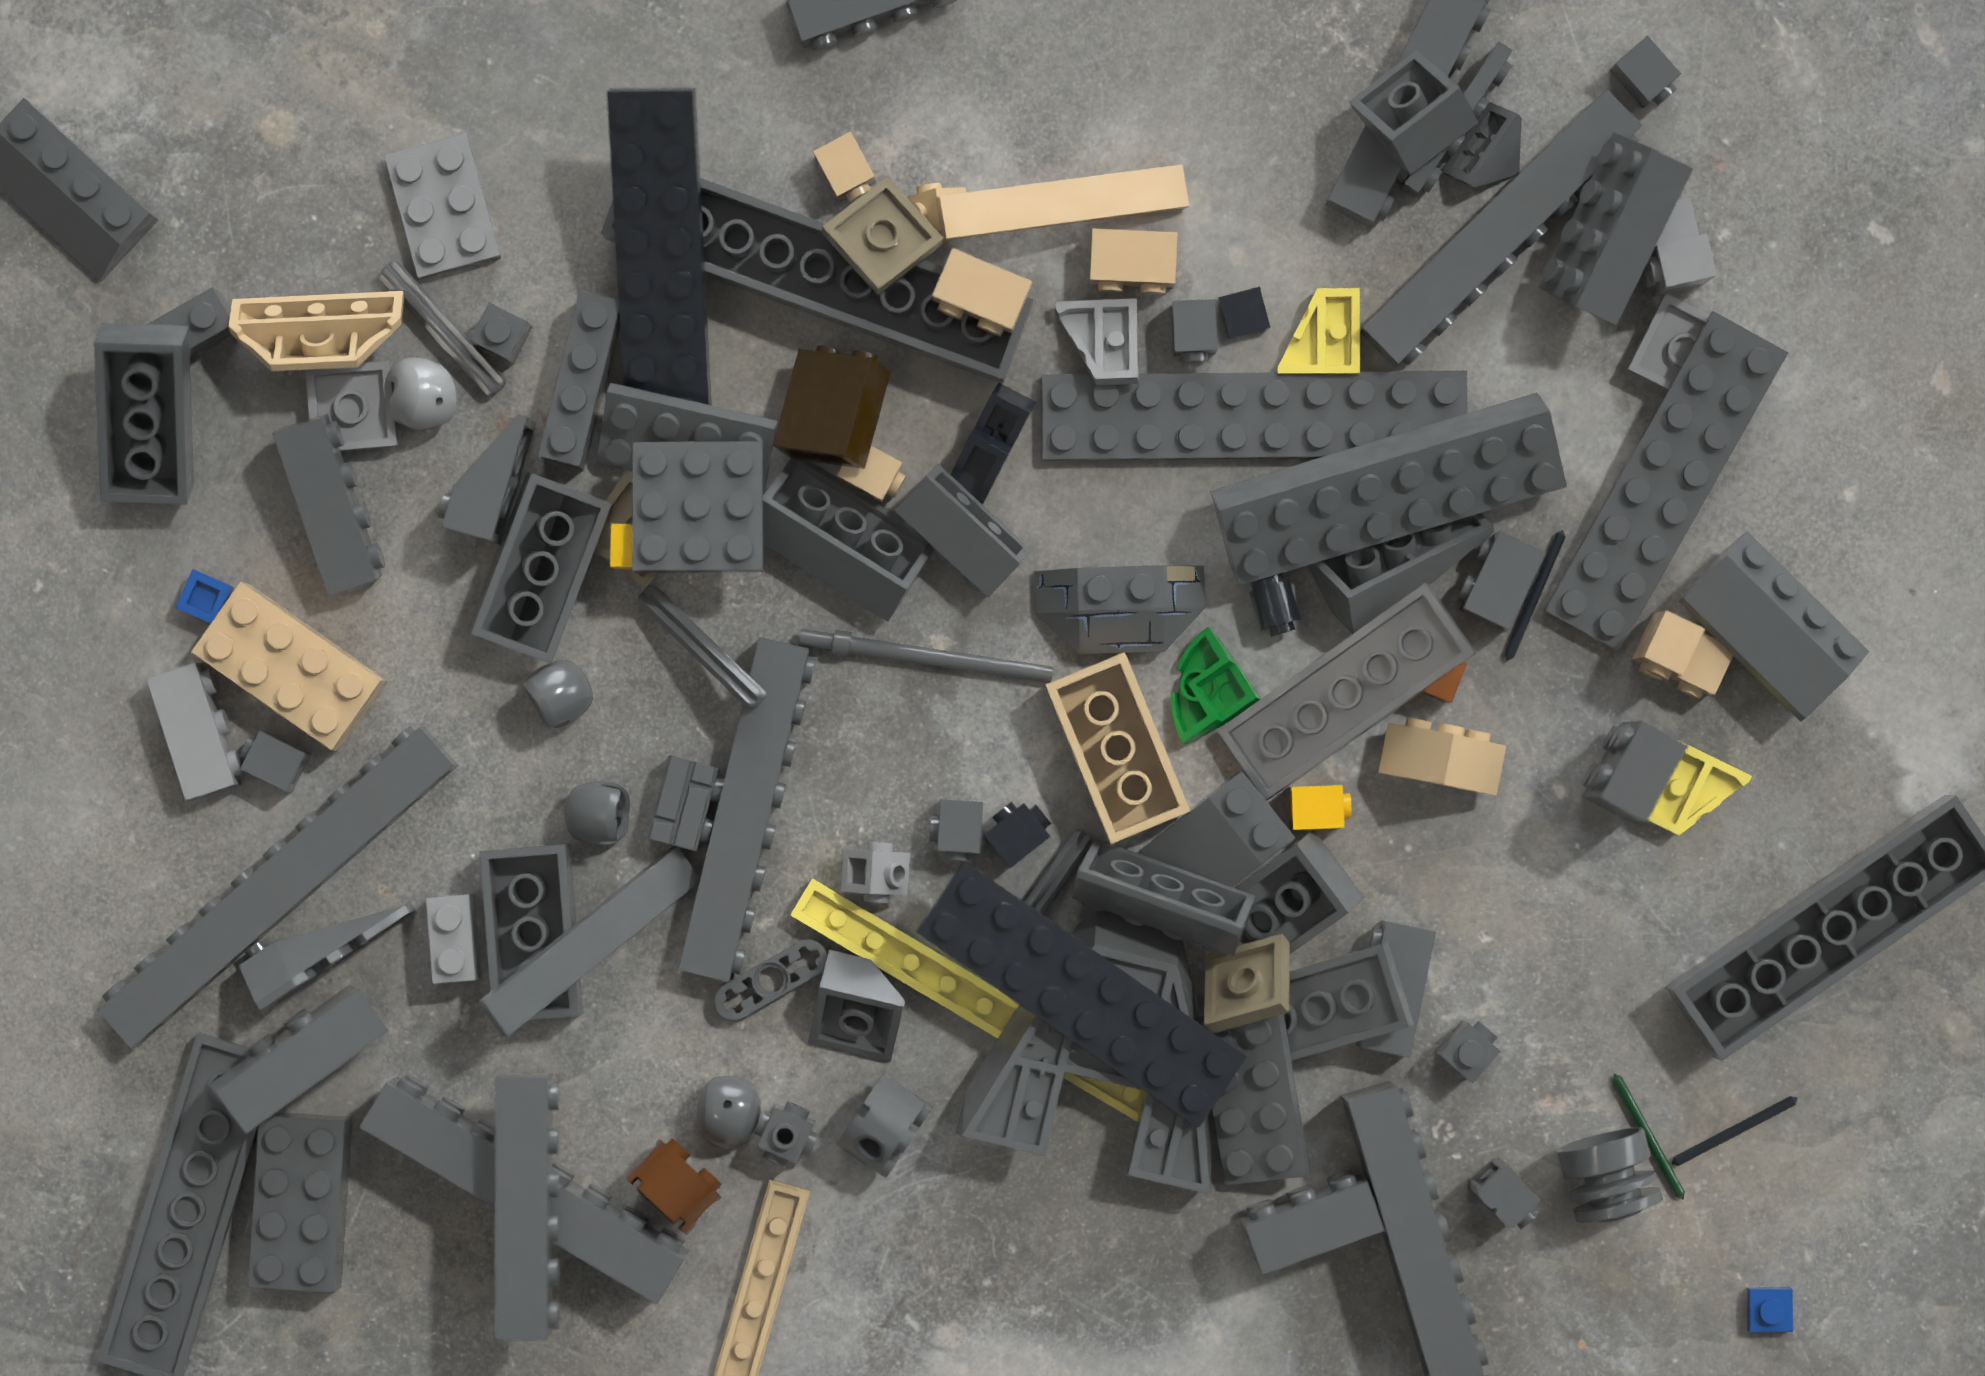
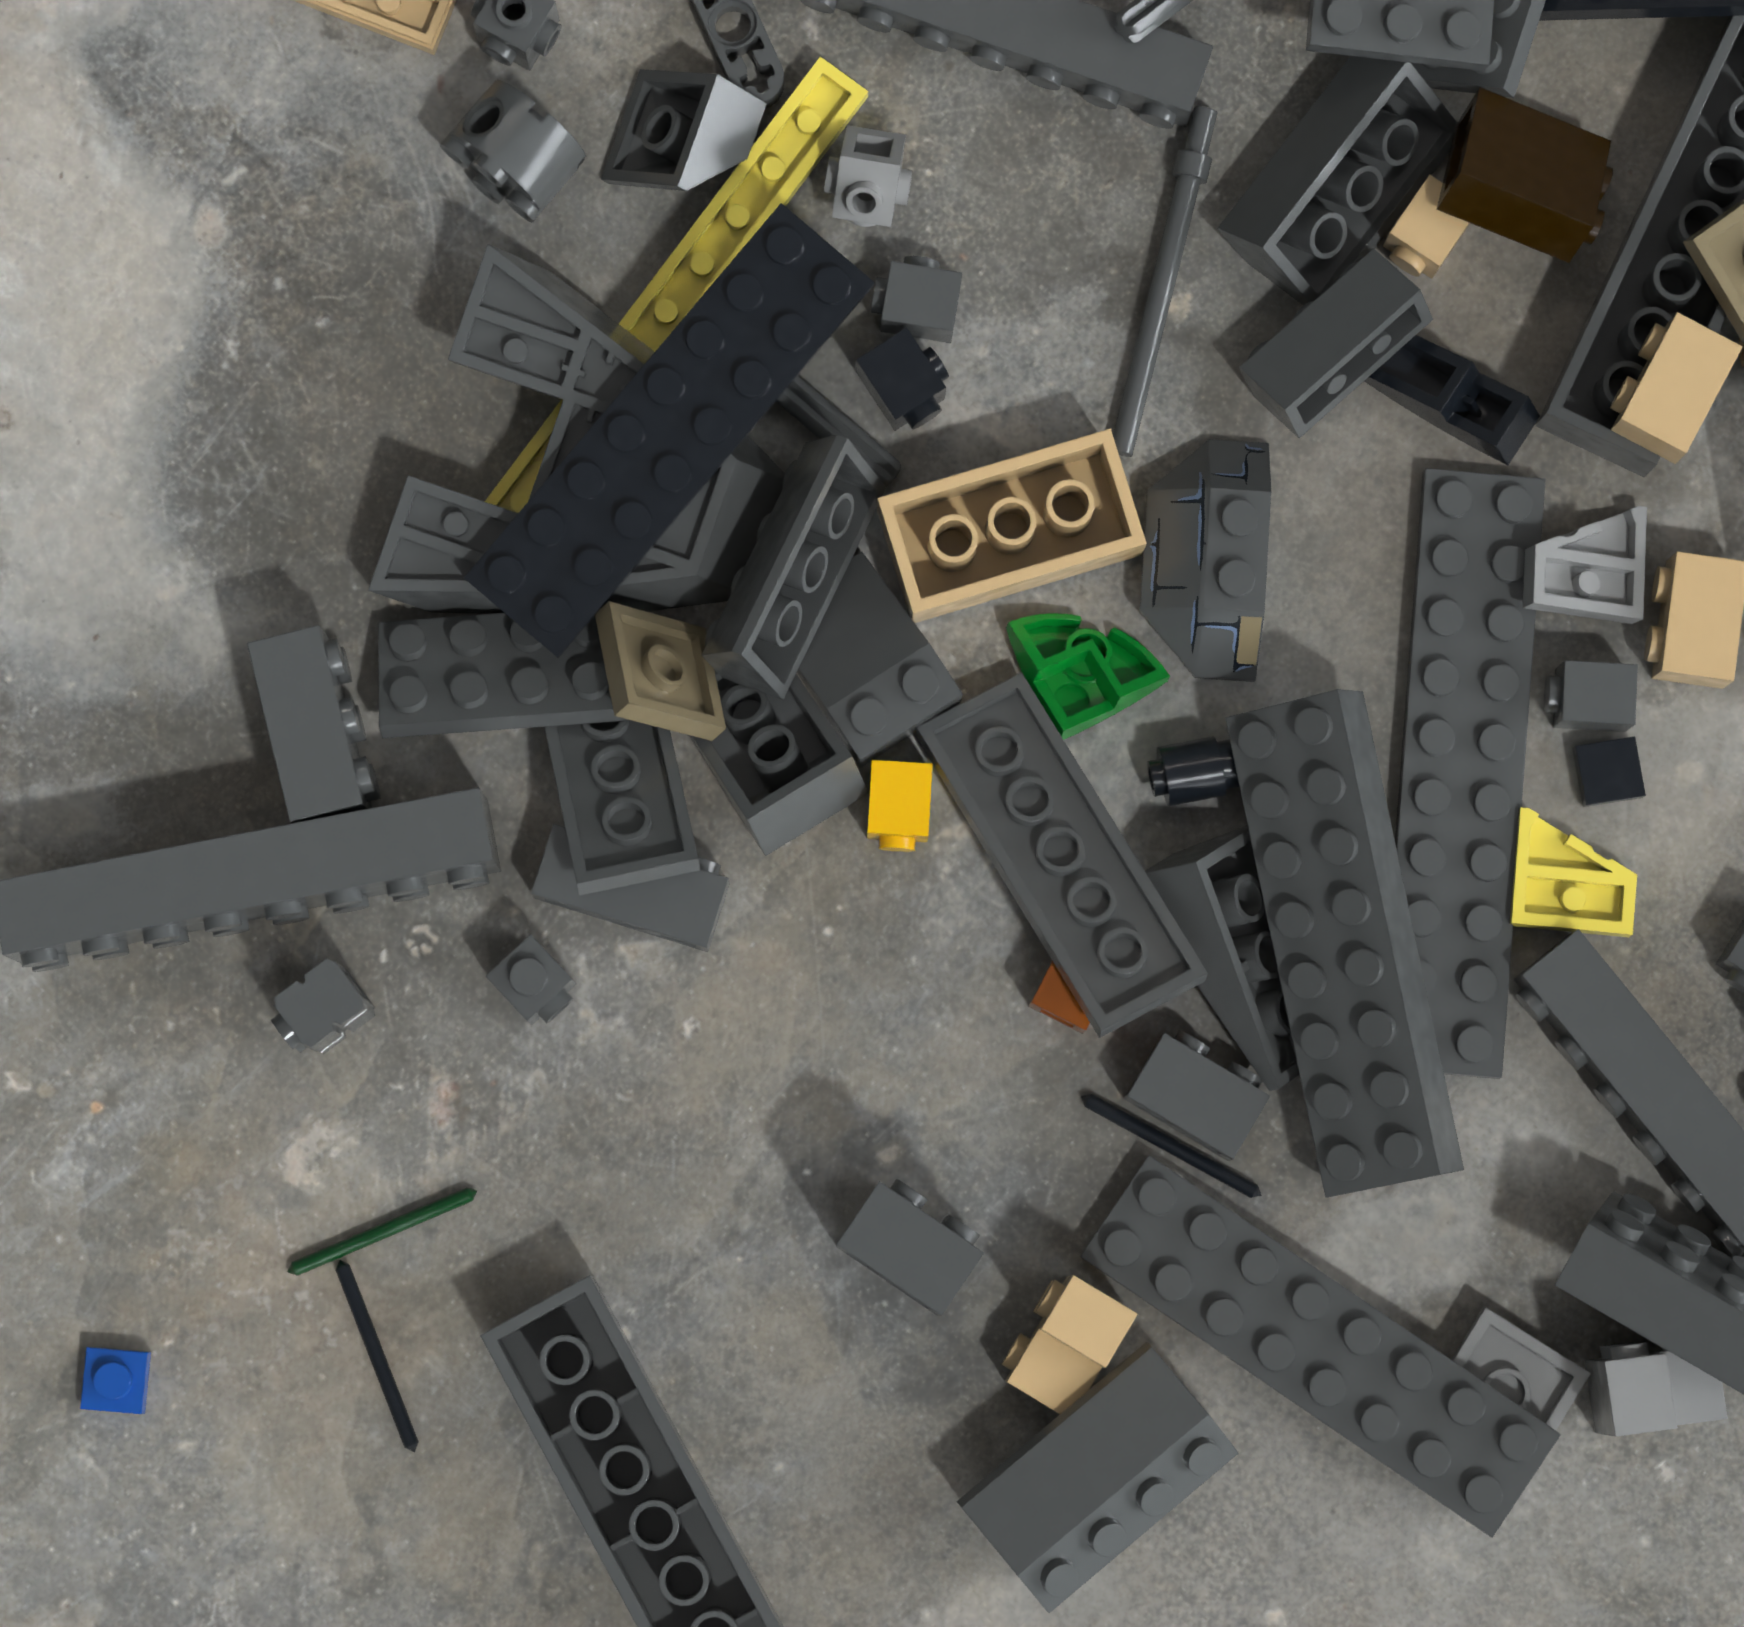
camera: 95 degrees right, 5 degrees down
(1443, 756) = (955, 985): tan brick -> none
(1609, 1174) = (333, 1161): dark grey wheel -> none
(1694, 790) = (874, 1338): light yellow wing -> none

